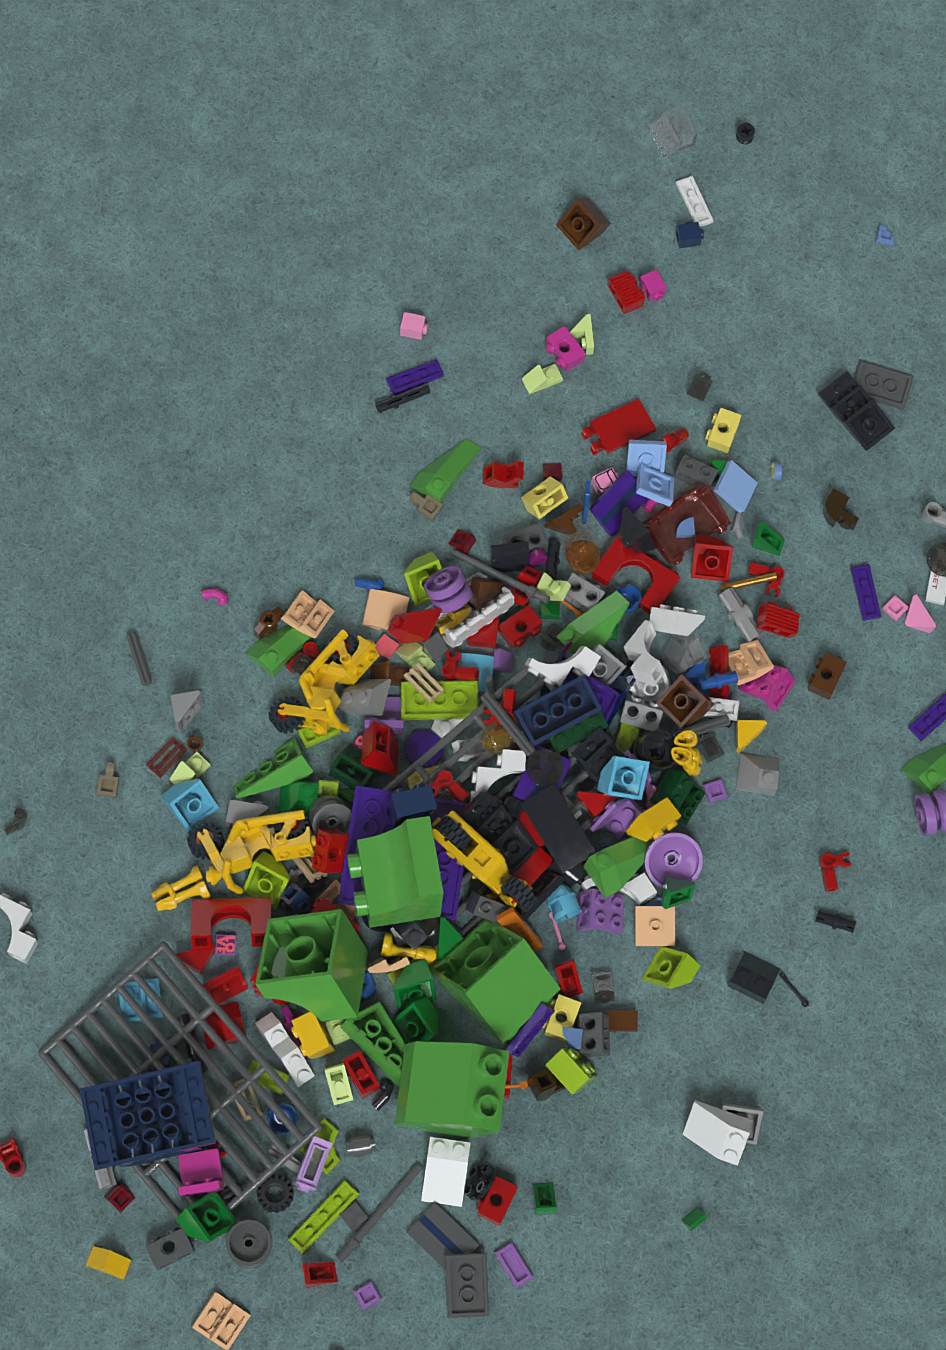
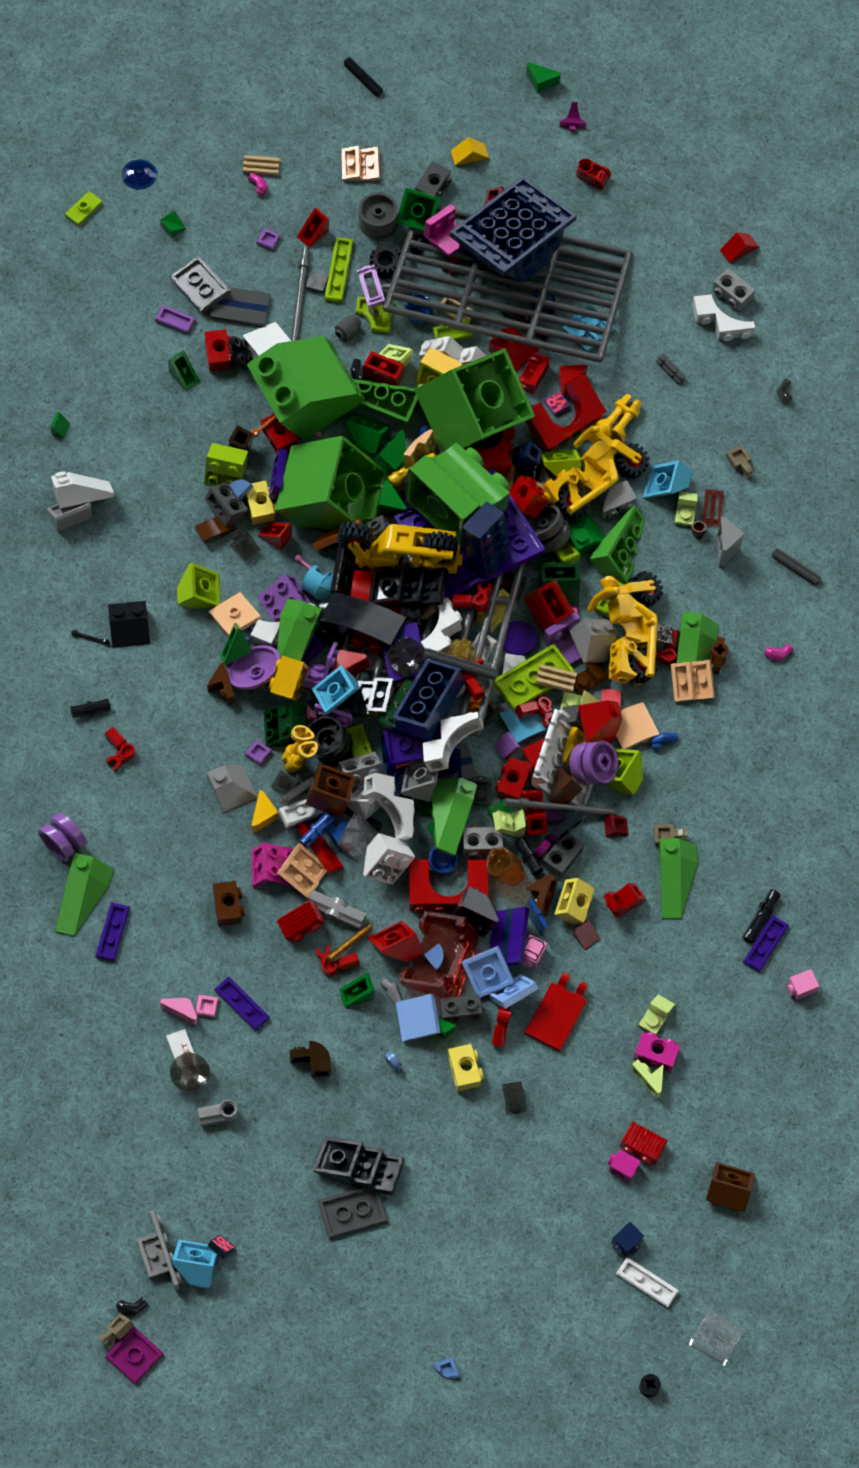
camera: 145 degrees right, 5 degrees down
(97, 911) = (670, 368): none -> dark grey axle
(707, 871) = (221, 681): none -> reddish brown slope

